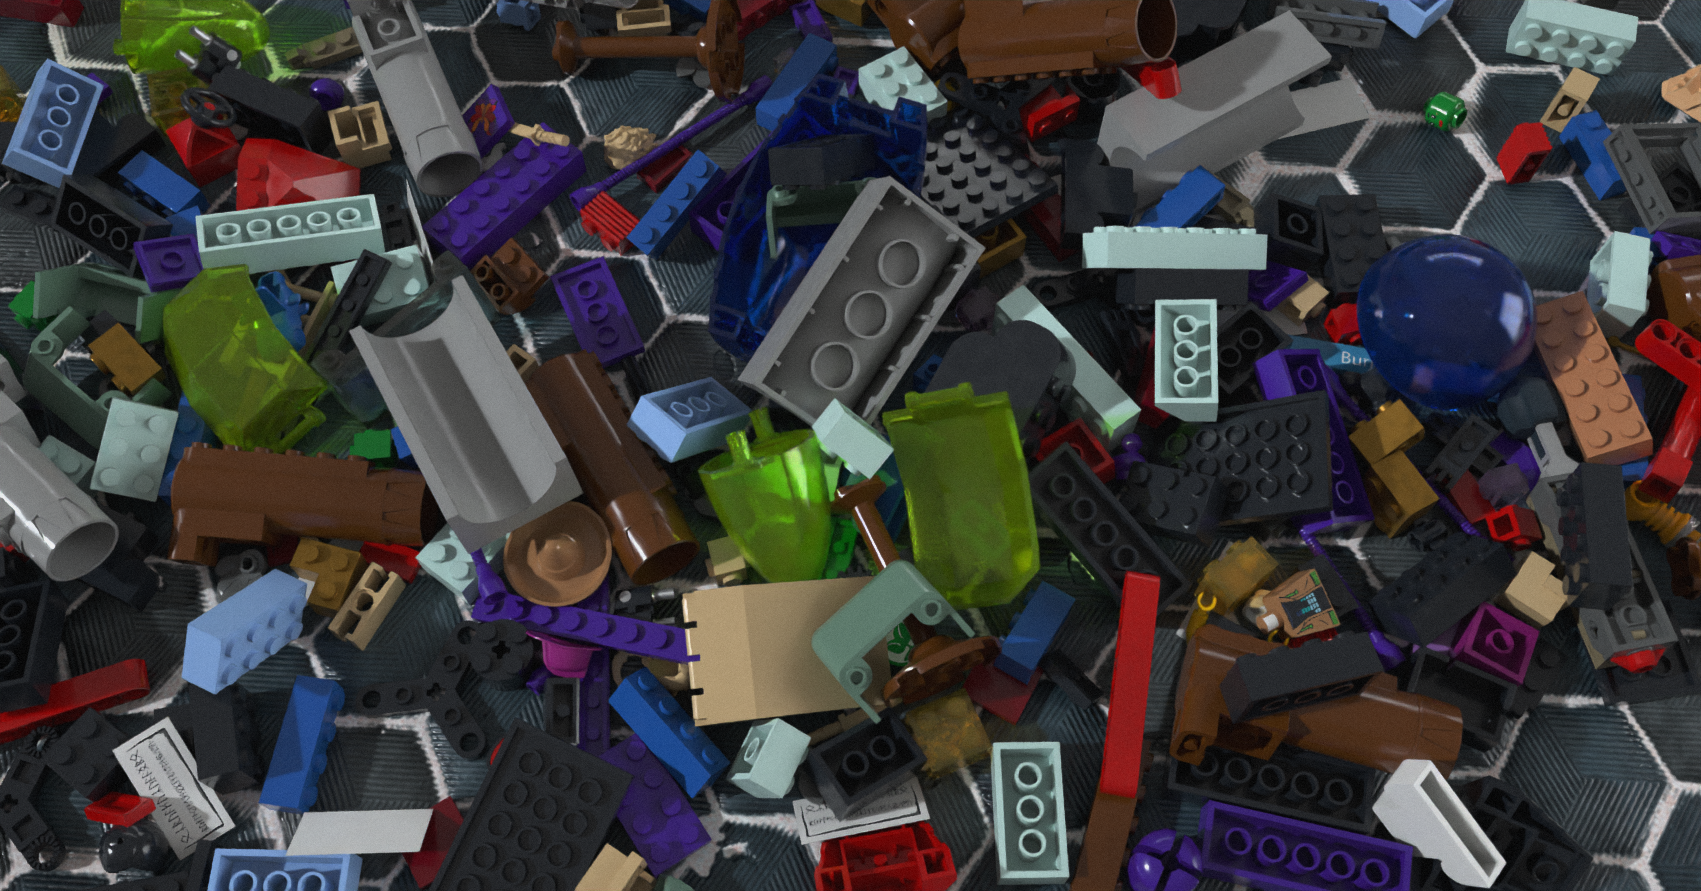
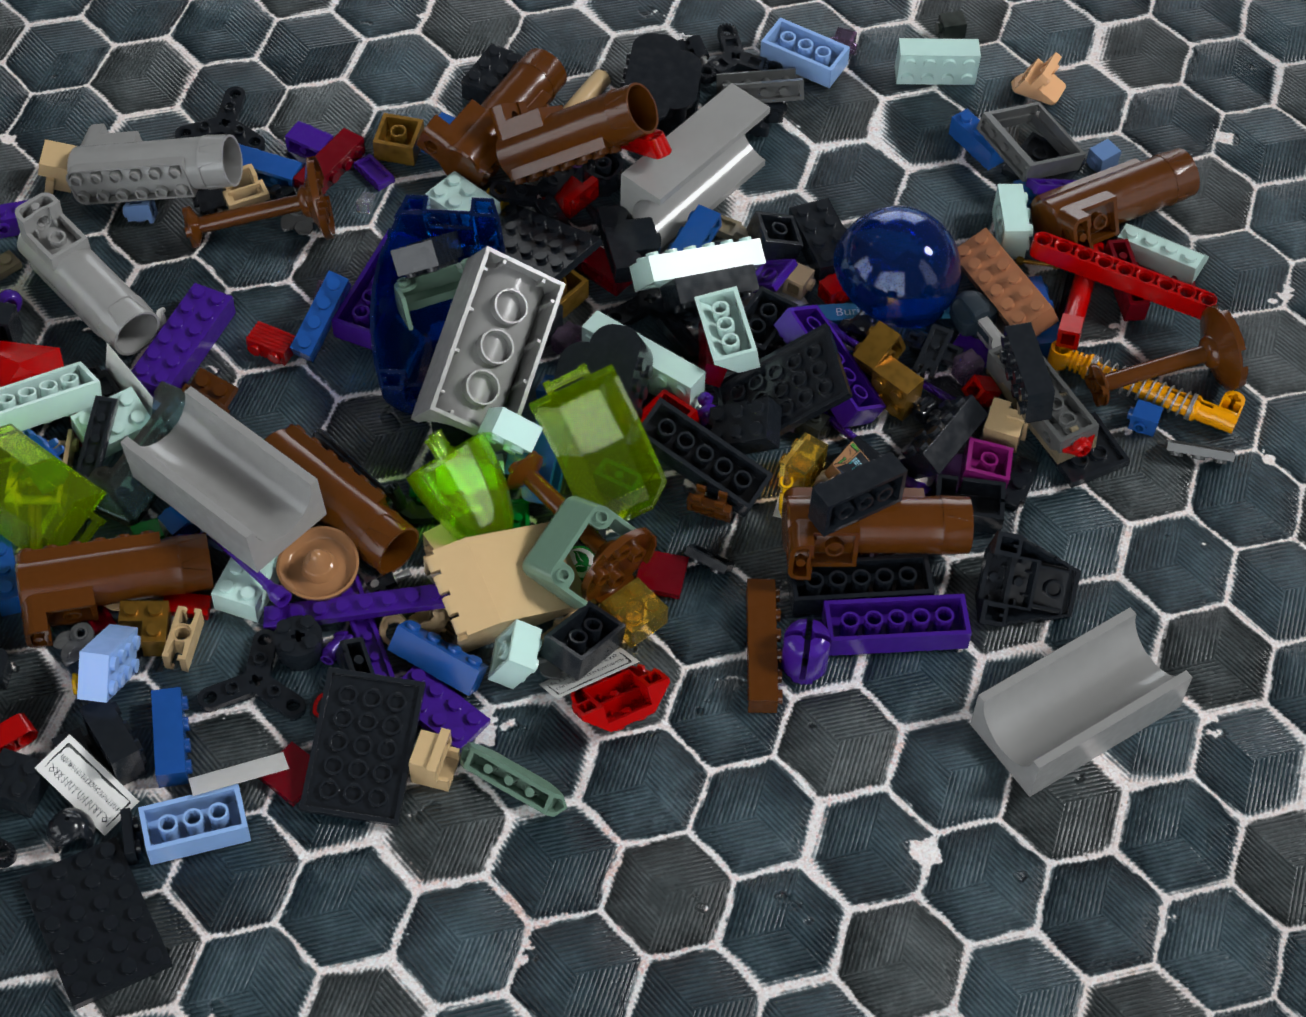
camera: 20 degrees left, 10 degrees down
(119, 809) = (51, 807): red tile -> none
(361, 134) = (51, 323): tan plate -> none
(488, 119) = (151, 287): dark purple tile -> none
(538, 135) = (195, 290): tan sword -> none
(564, 657) = (346, 626): magenta piece -> none
(597, 312) = (281, 403): dark purple plate -> none
(627, 145) = (264, 288): tan hair -> none
(664, 169) = (297, 296): dark red tile -> none
(688, 418) = (384, 453): light blue brick -> none
(754, 93) = (350, 227): dark purple hose -> none
(812, 57) = (379, 214): blue brick -> none
(1029, 813) = (705, 644): light aqua brick -> none
(1033, 631) = (674, 533): blue brick -> none
(1083, 593) = (703, 505): none -> reddish brown plate
(1130, 685) = (750, 543): red beam -> none
(1327, 106) = (779, 148): white sticker -> none
(1429, 816) = (973, 571): white brick -> none
(1445, 111) = (863, 133): green head -> none
(1467, 498) = (946, 381): red tile -> none
(1524, 152) = (925, 148): red brick -> none
(1569, 99) = (947, 105): tan brick -> none

